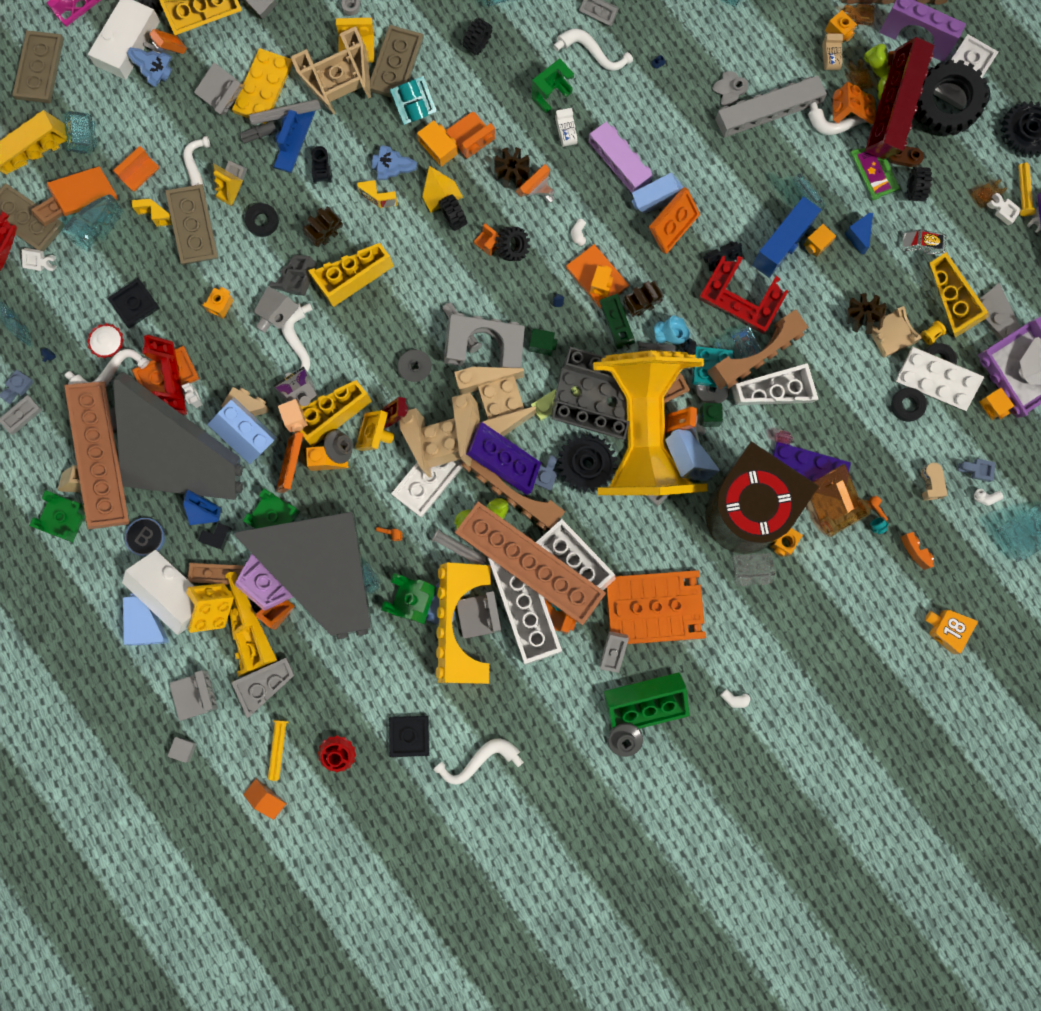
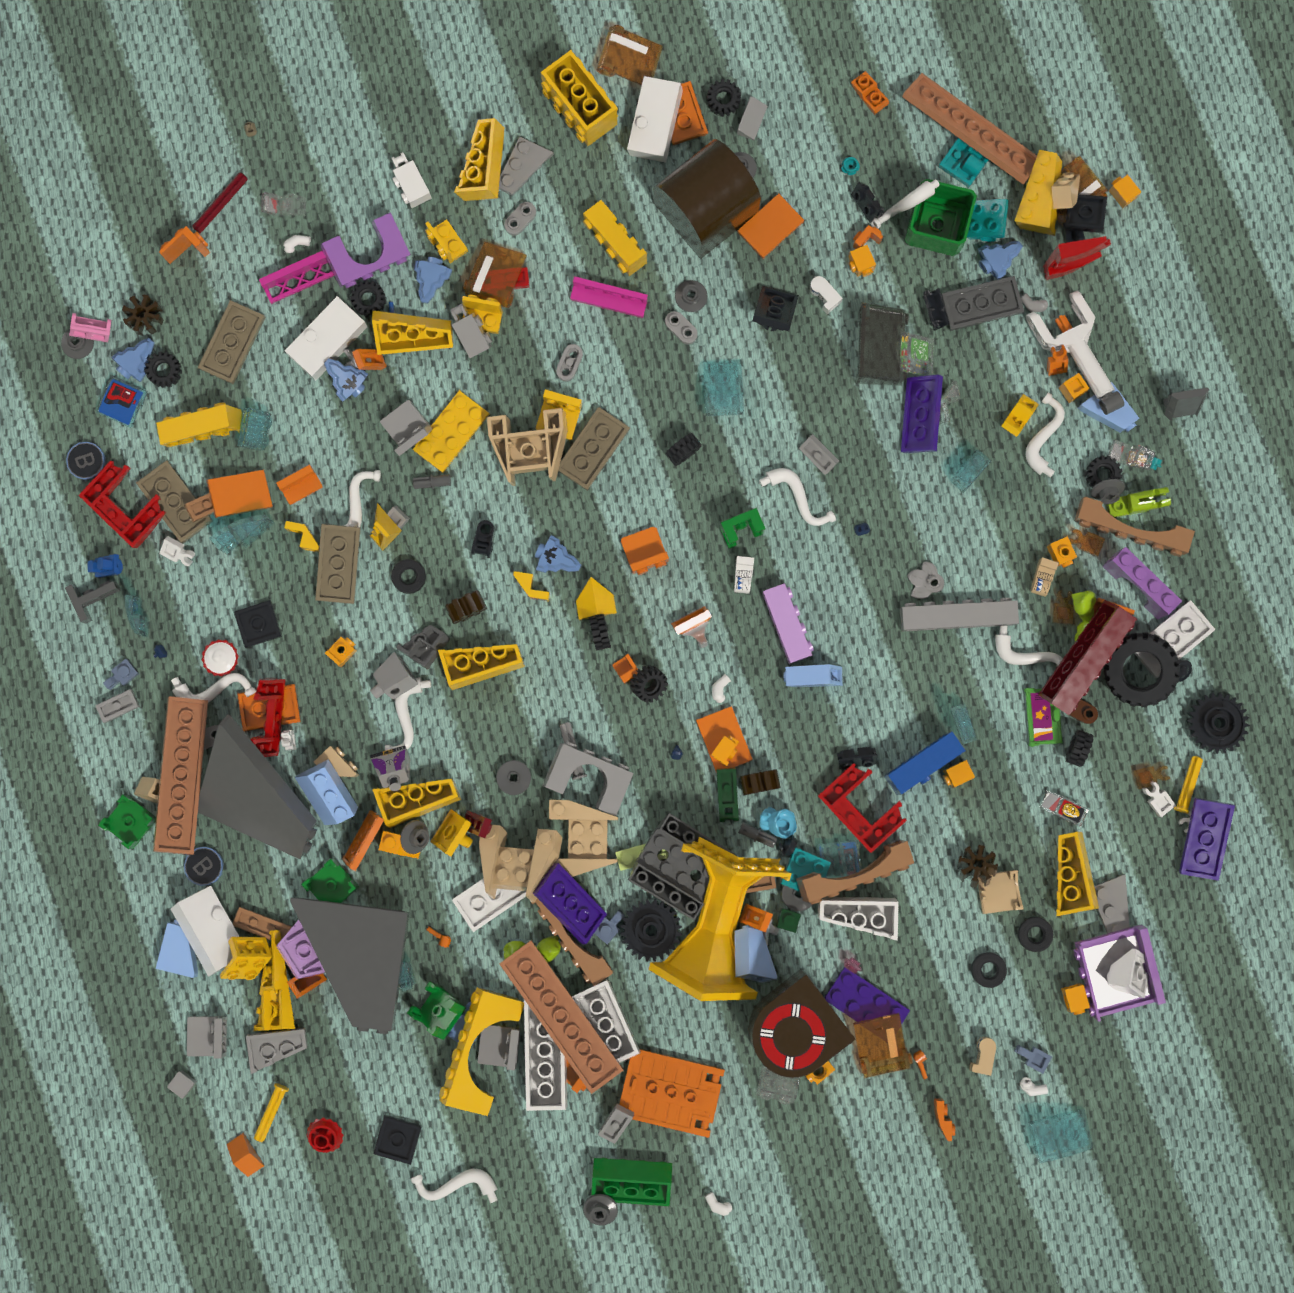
camera: 20 degrees right, 5 degrees up
(199, 509) = (264, 858): blue slope -> none
(218, 539) = (273, 890): black piece -> none
(278, 113) = (464, 470): light grey axle -> none
(292, 138) = (466, 497): blue bracket -> none
(293, 416) = (379, 799): light nougat brick -> none
(413, 100) = (597, 499): teal plate -> none
(437, 143) = (608, 551): light orange brick -> none
(459, 548) = (497, 970): light grey axle -> none
(520, 167) = (672, 583): dark brown gear -> none
(542, 342) = (647, 793): dark green brick -> none
(674, 220) = (818, 709): orange tile -> none
(853, 99) = (1043, 640): orange bracket -> none
(860, 233) = (1003, 779): blue slope -> none
(879, 525) = (915, 1081): teal plate -> none
(935, 331) = (1039, 905): yellow bush -> none
(939, 378) = (1027, 954): white plate -> none
(951, 629) = (948, 1205): light orange torso -> none

